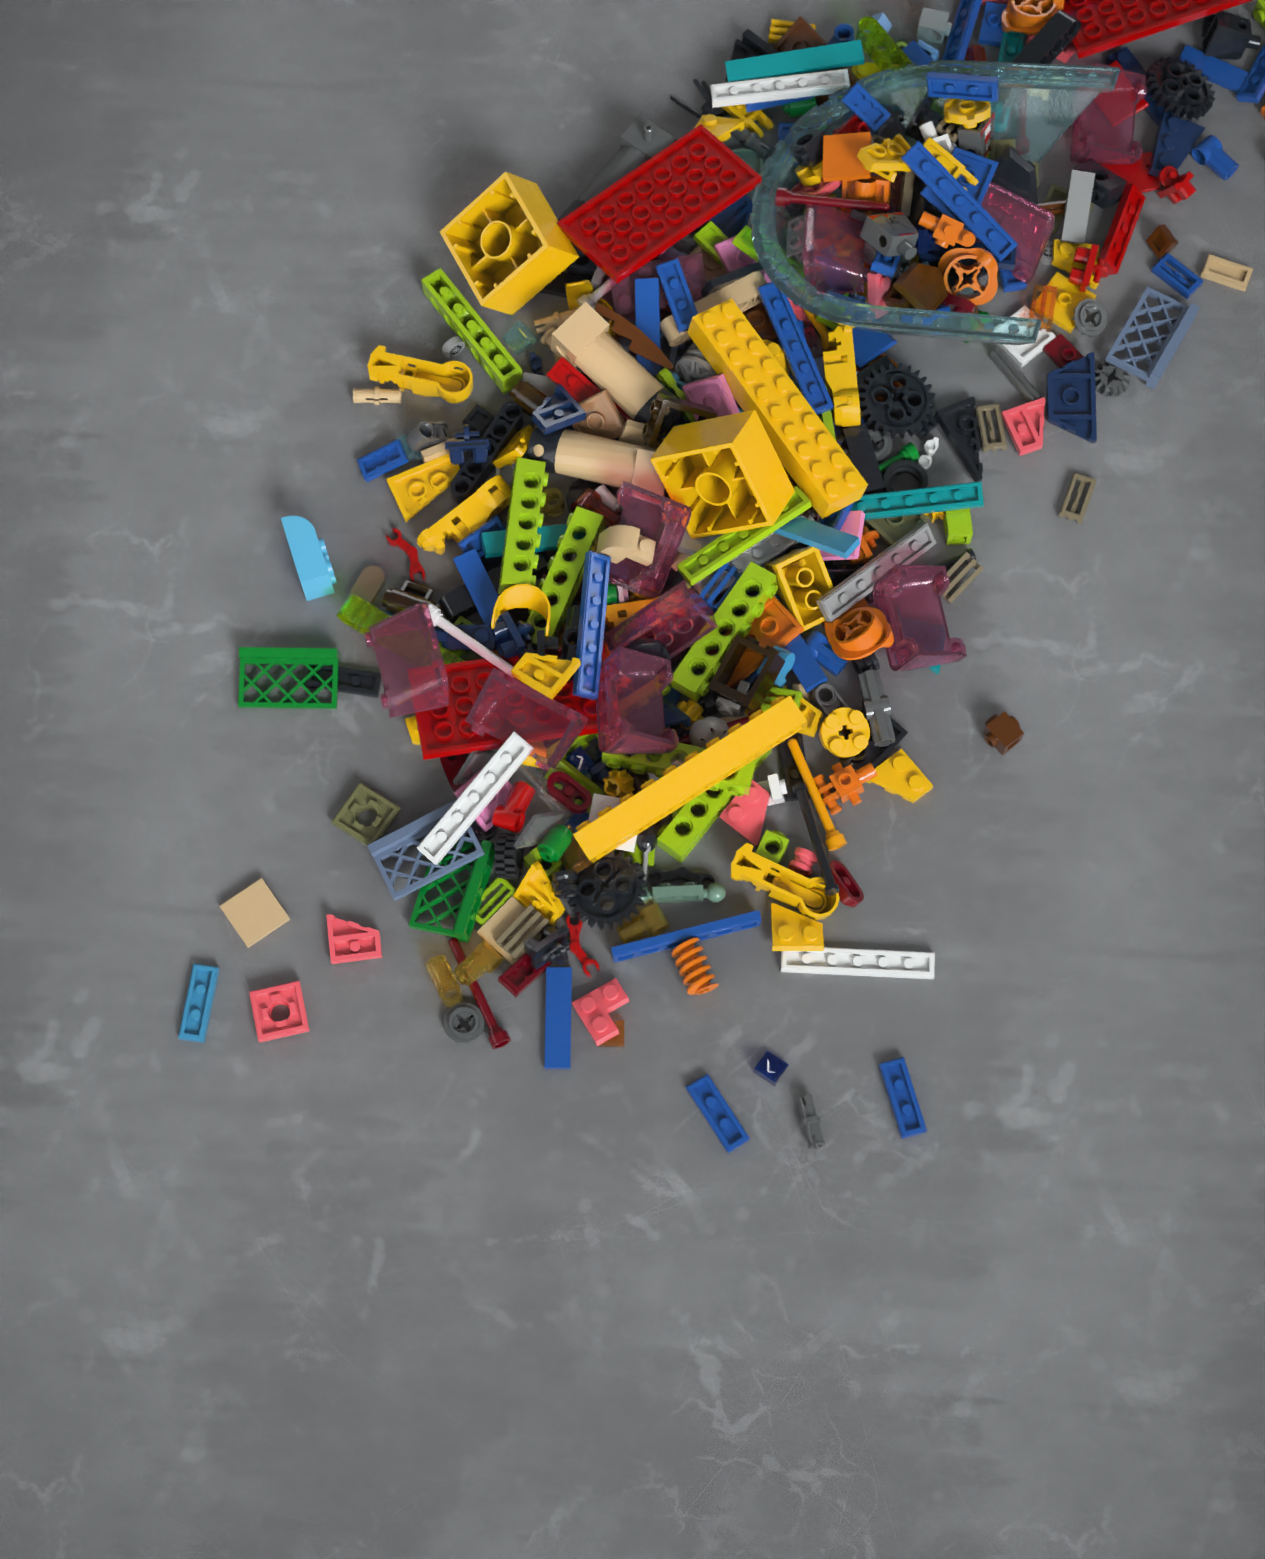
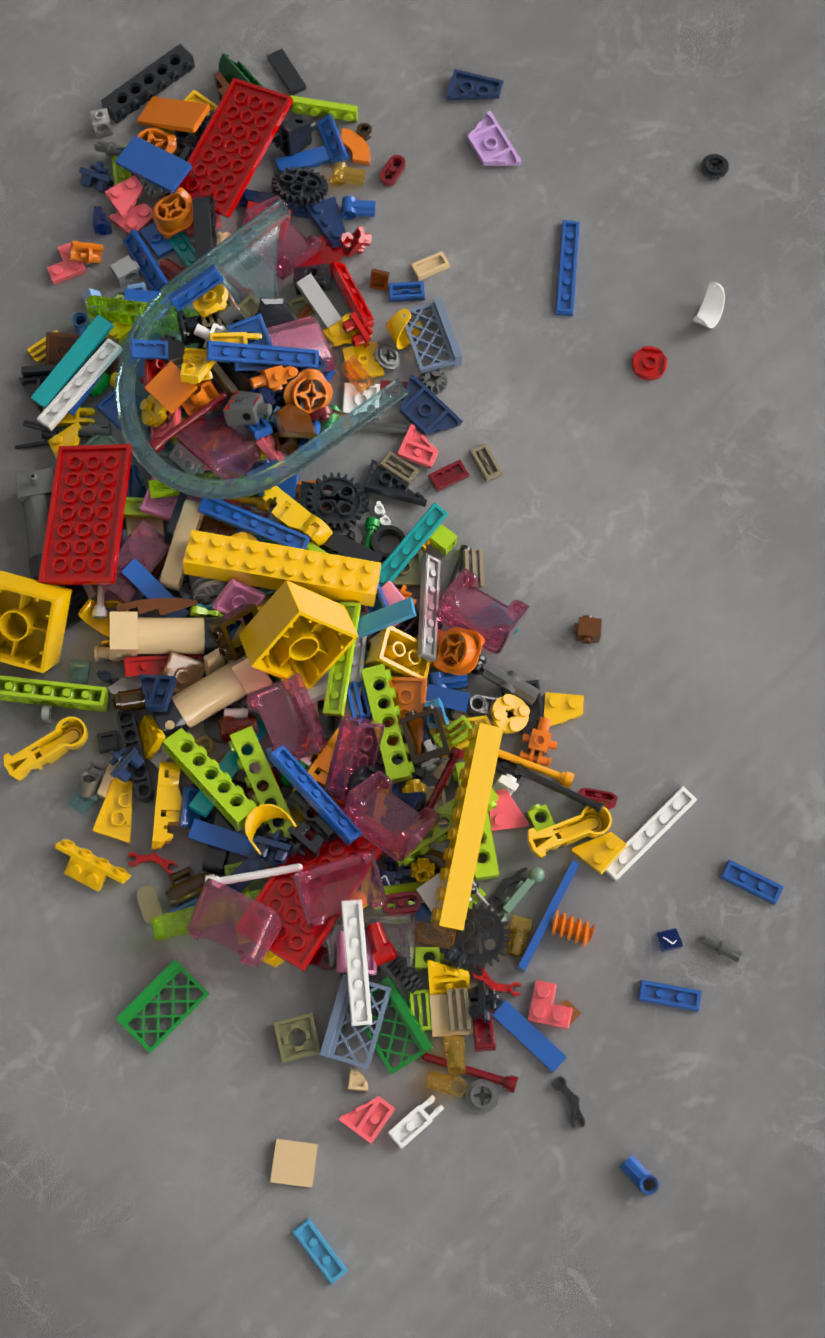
camera: 50 degrees left, 0 degrees up
(266, 999) = (357, 1210): coral piece -> none
(309, 557) = (98, 922): medium azure brick -> none
(349, 680) = (199, 969): black tile -> none
(351, 507) = (89, 868): none -> yellow bracket
(376, 903) = (357, 1081): none -> tan tile
(377, 395) = (31, 786): tan pin -> none
(382, 460) = (77, 821): blue plate -> none
(384, 984) = (413, 1123): none -> white hinge
(521, 1225) = (638, 1174): none -> blue piece
(537, 1108) = (574, 1100): none -> black piece
(545, 673) = (322, 849): yellow wing -> none
(553, 321) = (92, 639): tan pin -> none
(555, 843) = (425, 940): green brick -> none
(624, 542) = (282, 729): tan brick -> none
(677, 293) = (155, 557): blue tile -> none
(701, 730) = (437, 791): light grey helmet -> none
(803, 862) = (563, 808): coral wheel -> none
(809, 148) = (141, 402): black brick -> none
(1027, 476) = (448, 475): none -> dark red plate
(1120, 310) = (396, 329): none -> yellow piece
(1236, 114) = (343, 174): none -> clear yellow piece

